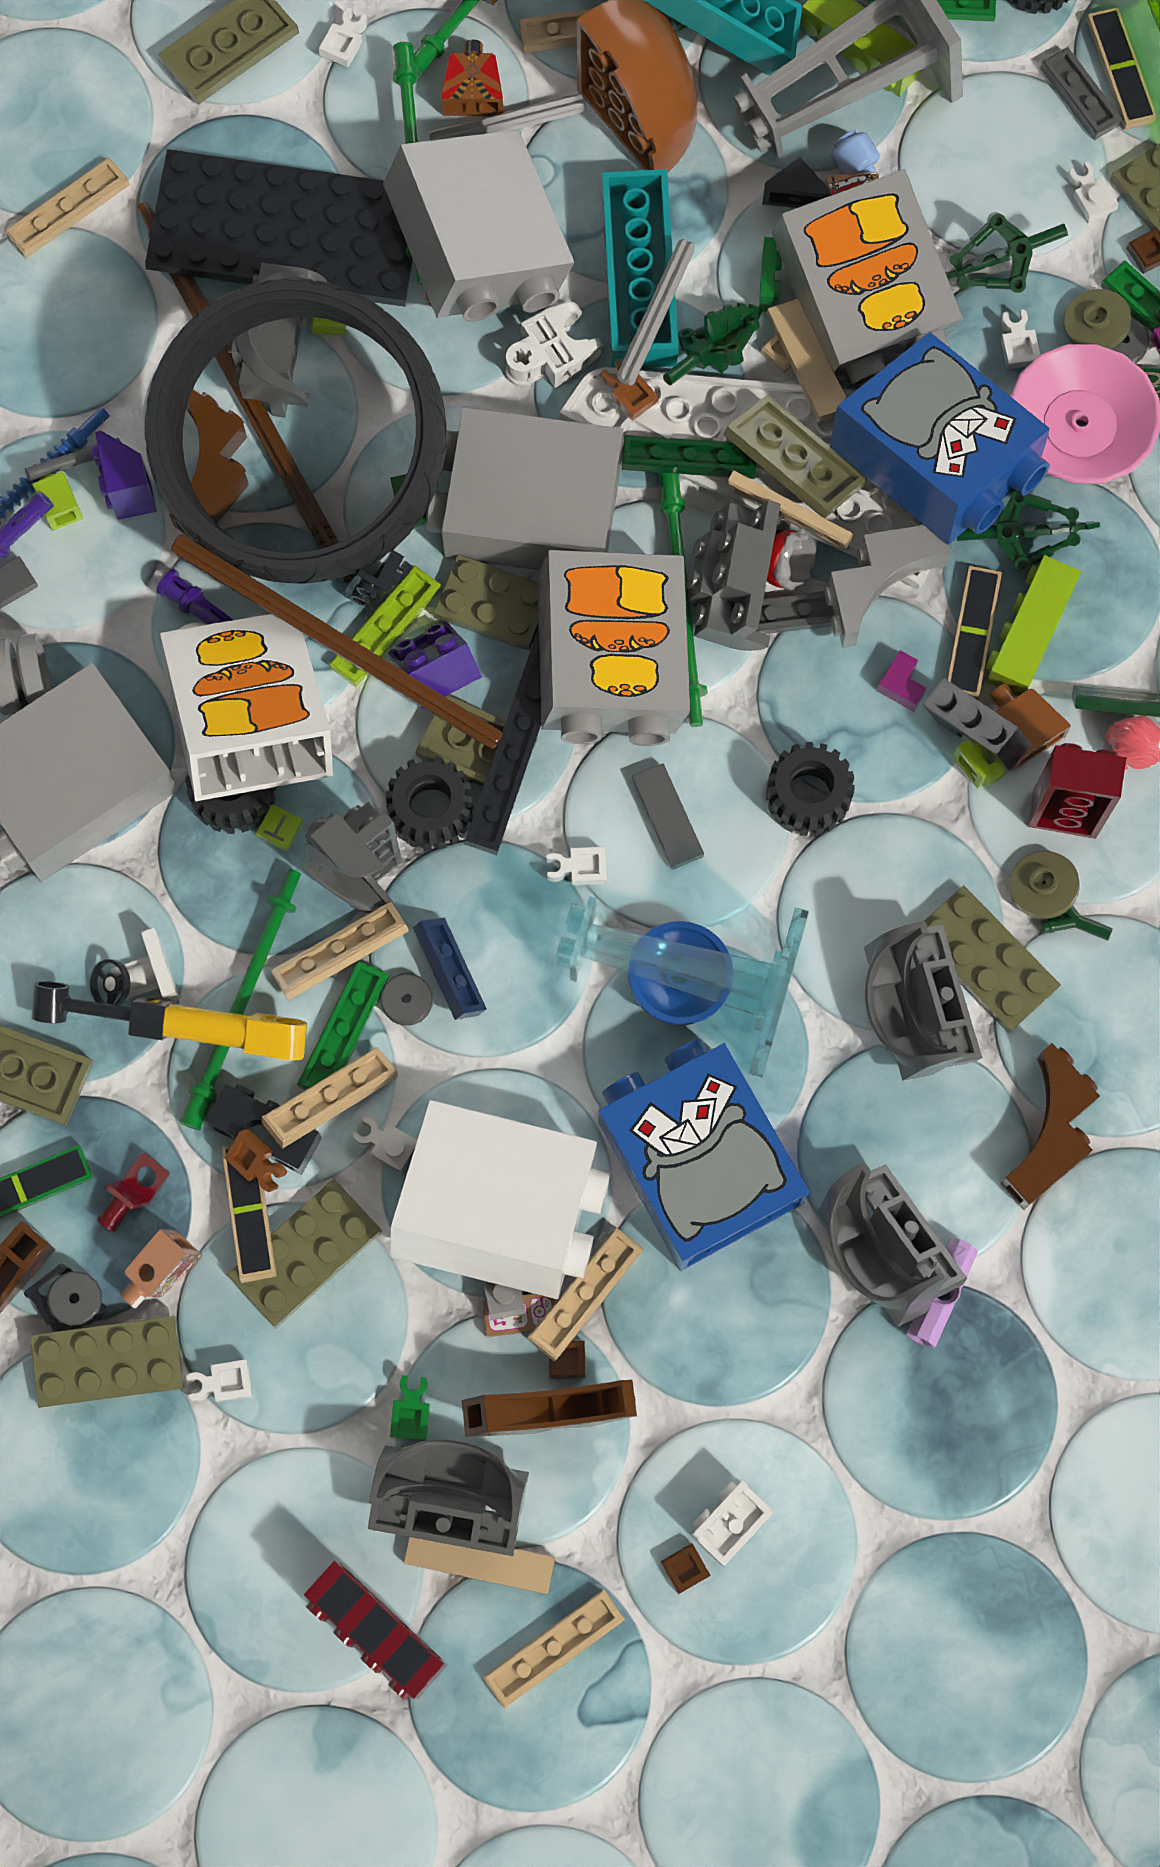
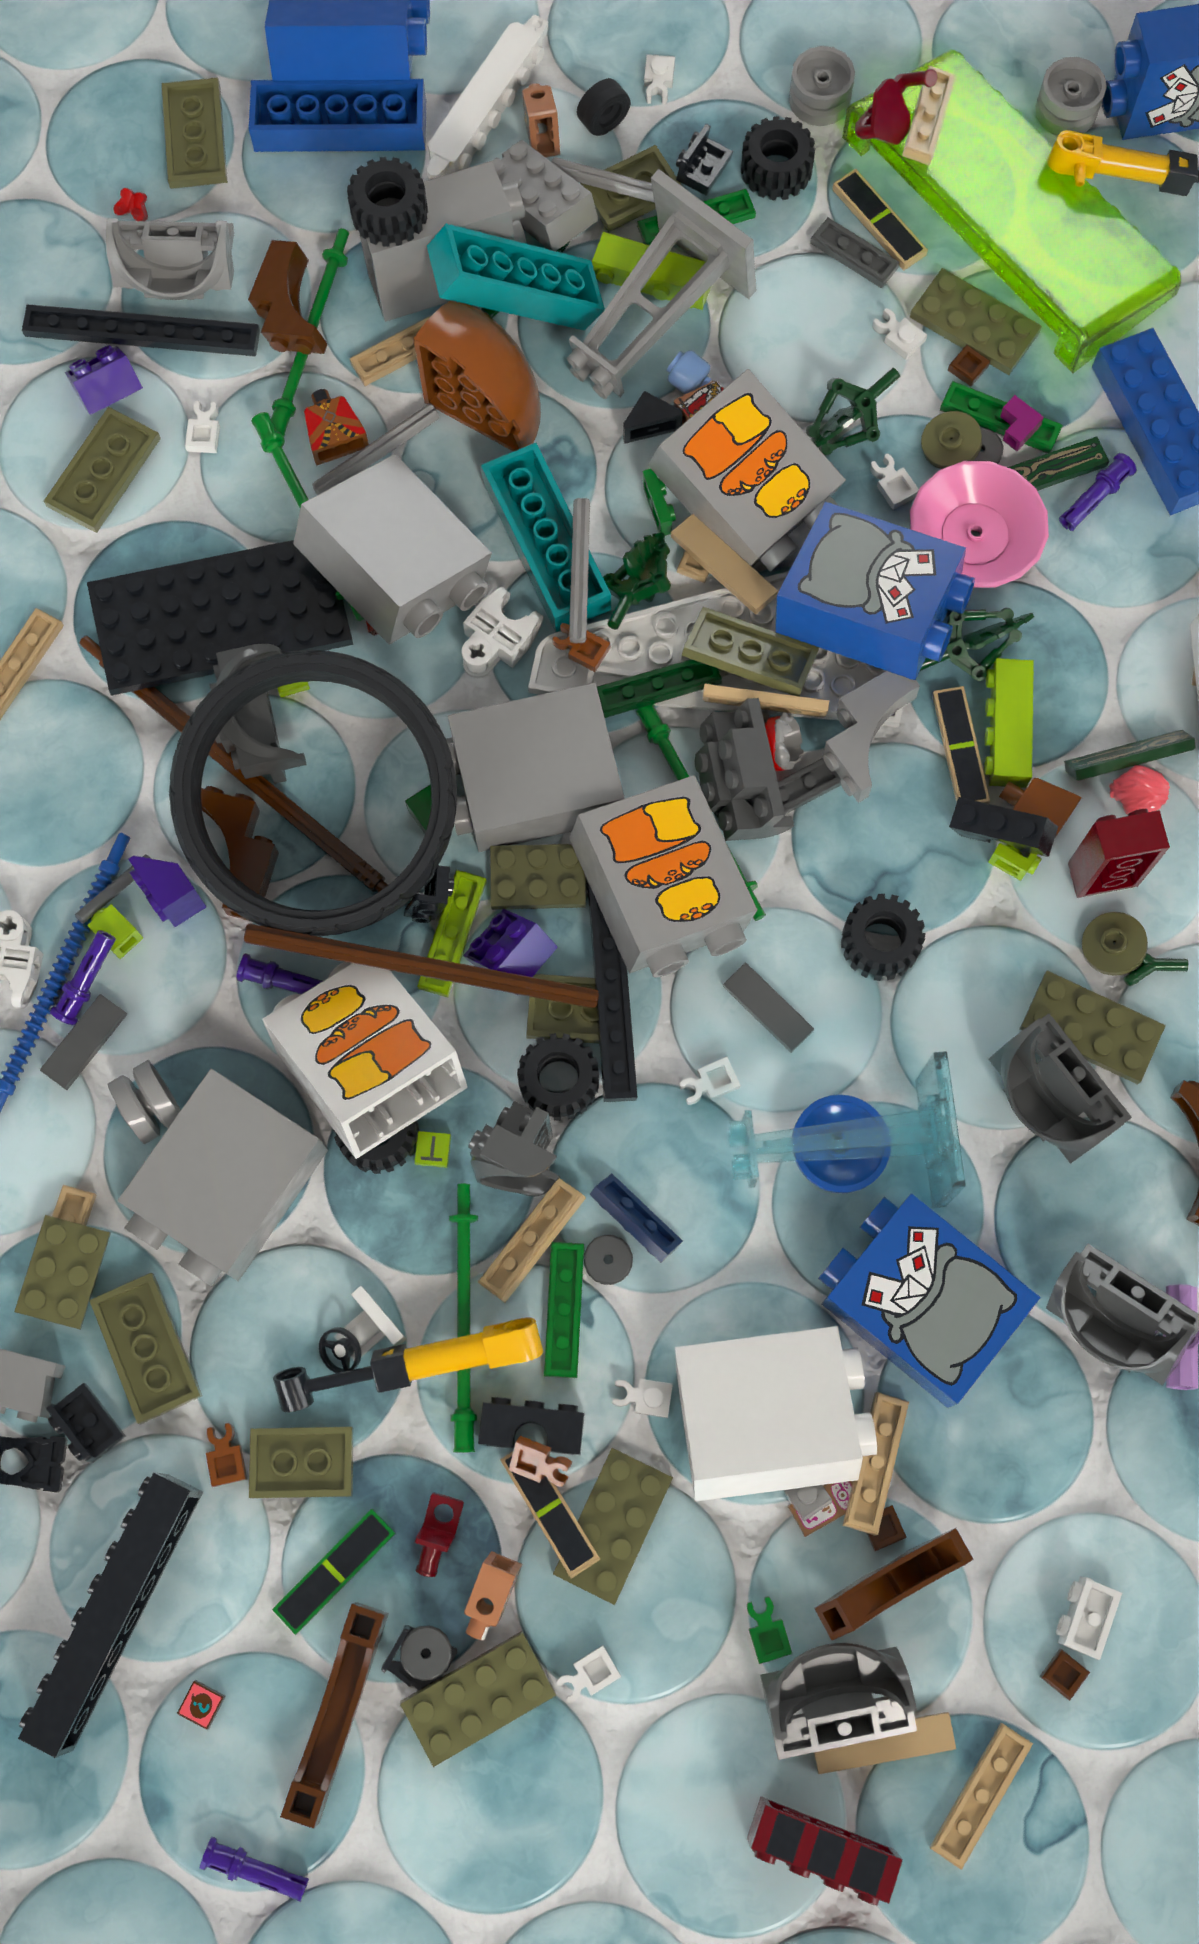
camera: 20 degrees left, 0 degrees up
(329, 1097) = (579, 1377): tan tile -> none
(897, 682) = (916, 816): magenta piece -> none

